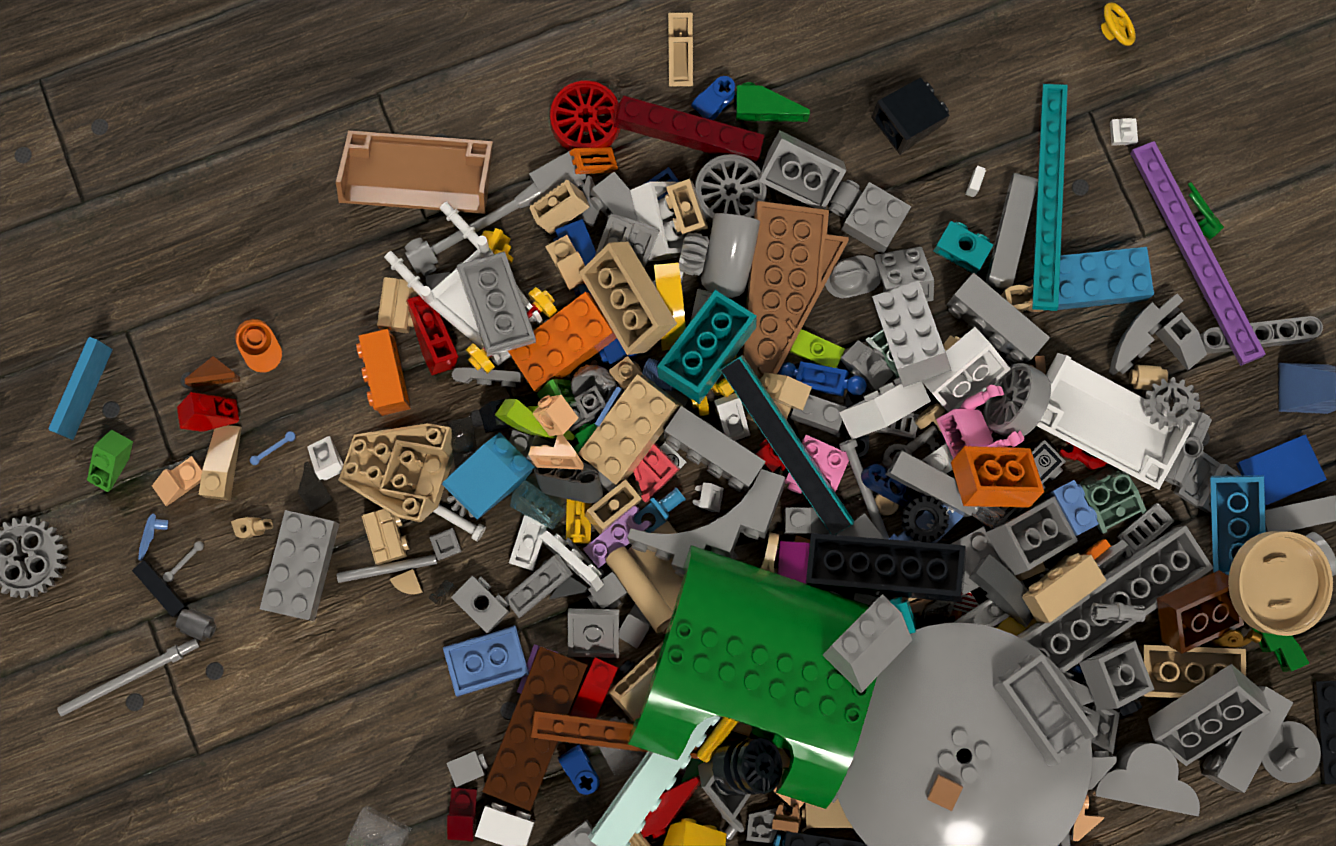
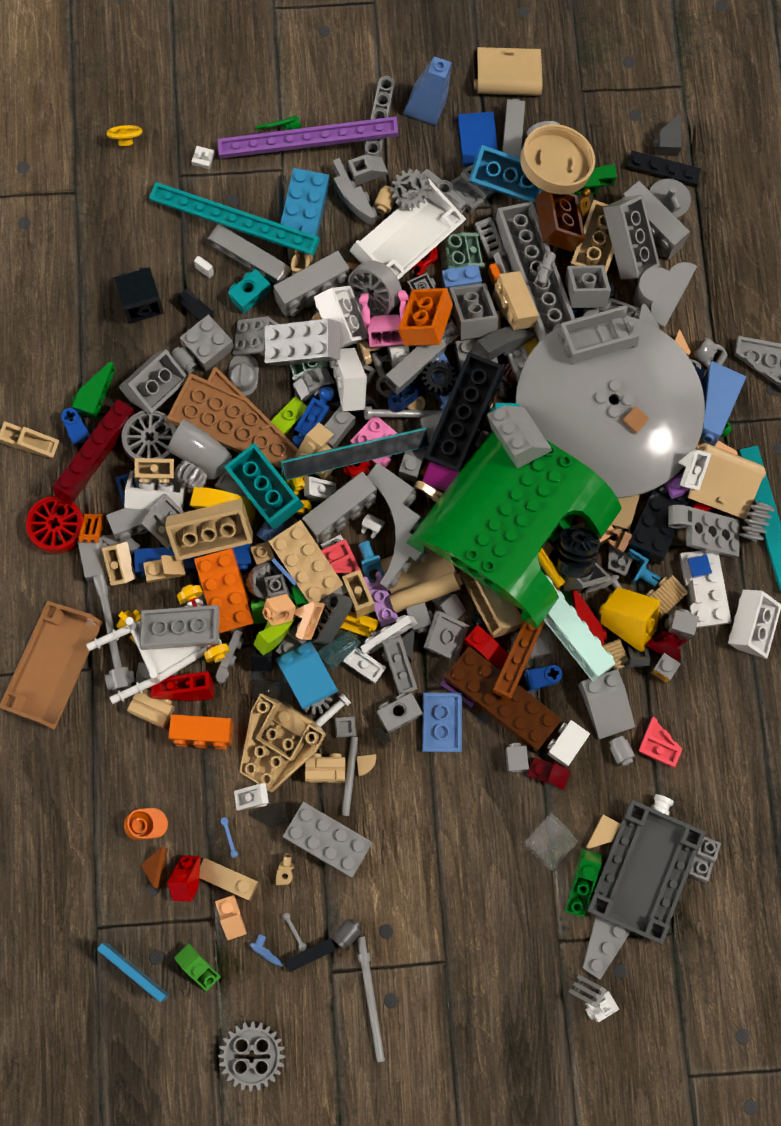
camera: 75 degrees left, 5 degrees down
(920, 187) = (194, 305): none -> black axle

